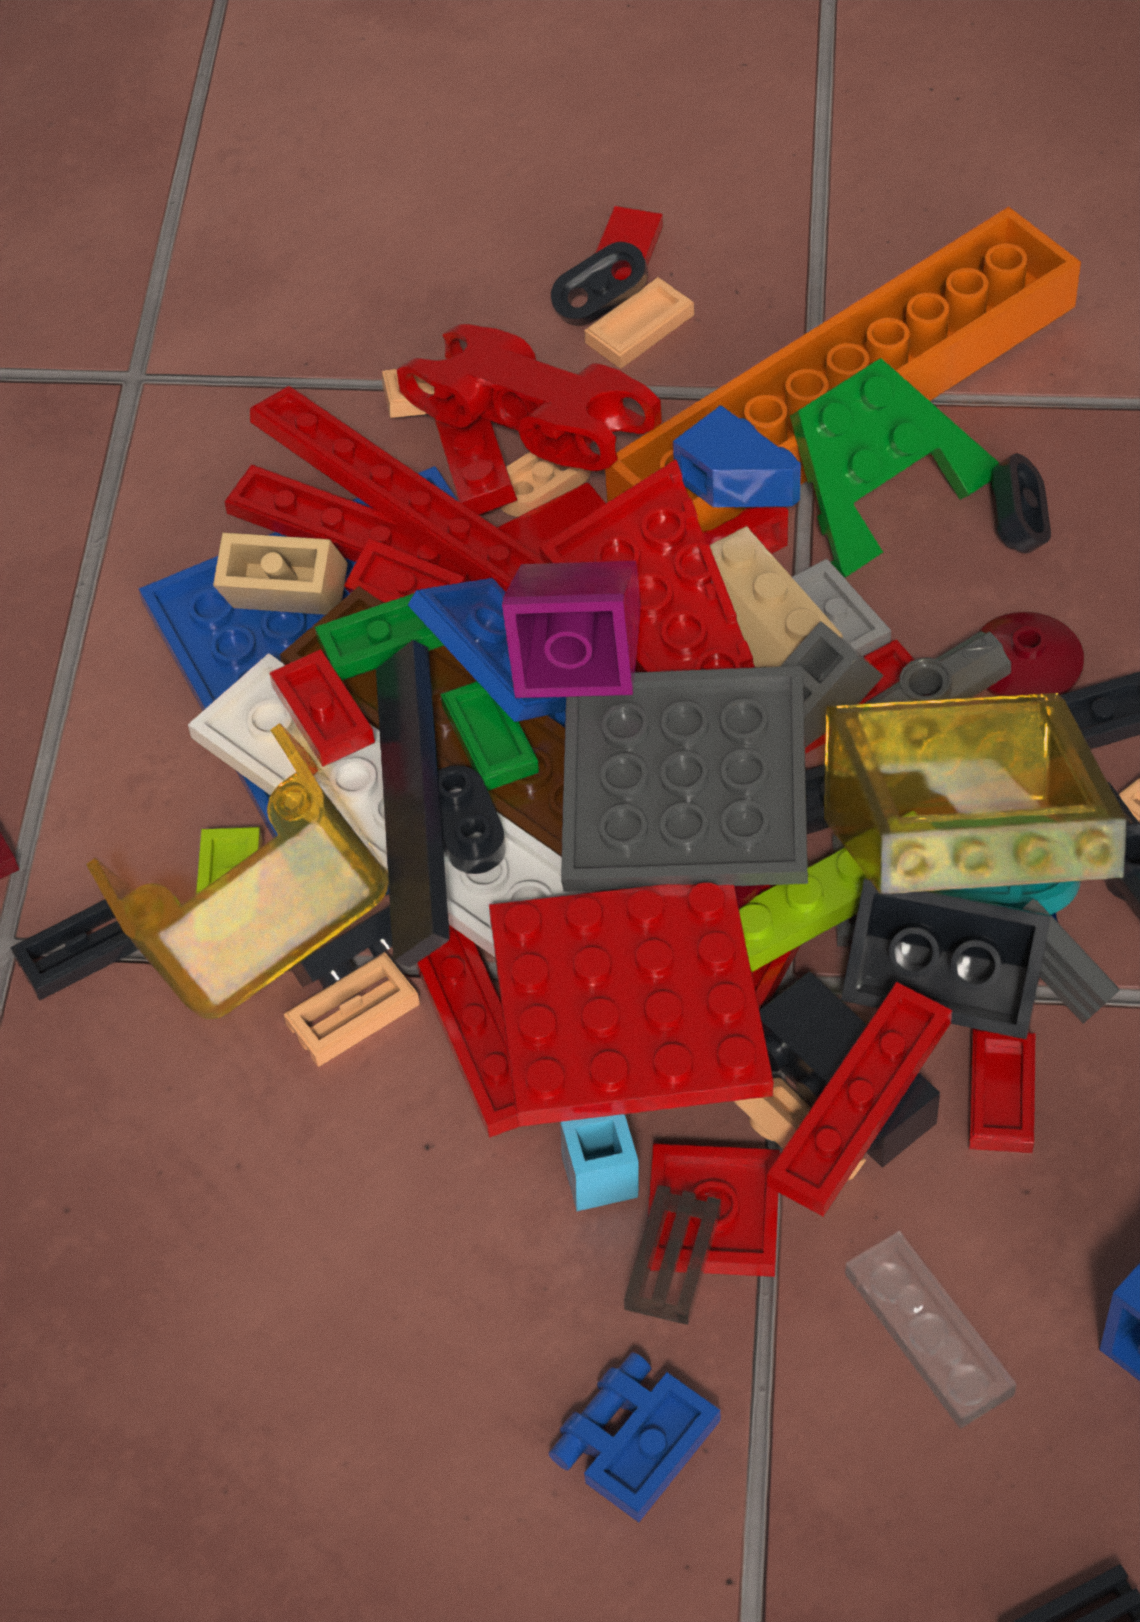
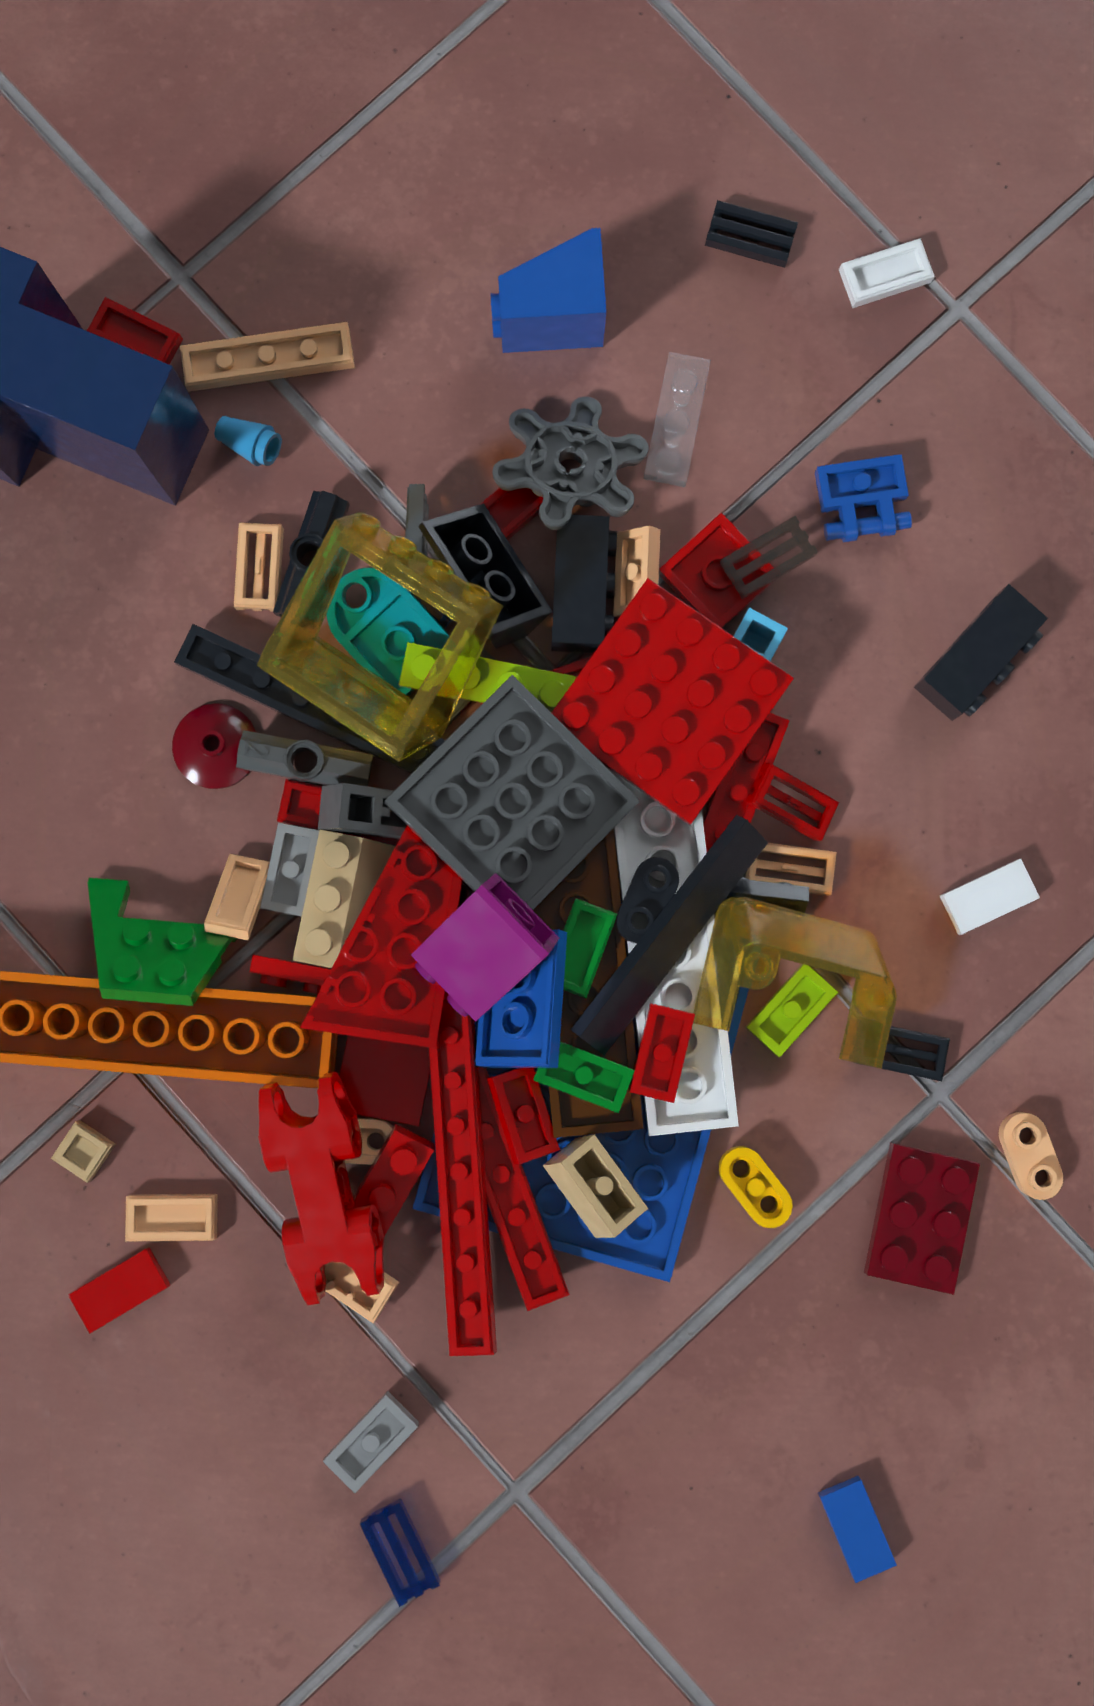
camera: 145 degrees left, 30 degrees up
(106, 1155) = (989, 896): none -> white tile
(127, 720) = (755, 1185): none -> yellow plate
(199, 265) = (416, 1586): none -> clear blue tile
(297, 309) = (371, 1441): none -> light grey plate
(335, 1379) = (982, 654): none -> black brick
(411, 1064) = (763, 787): none -> red tile
(597, 280) = (170, 1264): black plate -> none
(736, 465) = (267, 995): blue slope -> none
(767, 307) = (83, 1151): none -> tan tile
(855, 545) = (237, 897): none -> light nougat tile
(859, 1099) = (607, 537): red plate -> none
(1013, 1129) = (575, 439): none -> dark grey plate
(1021, 504) = (109, 841): black plate -> none

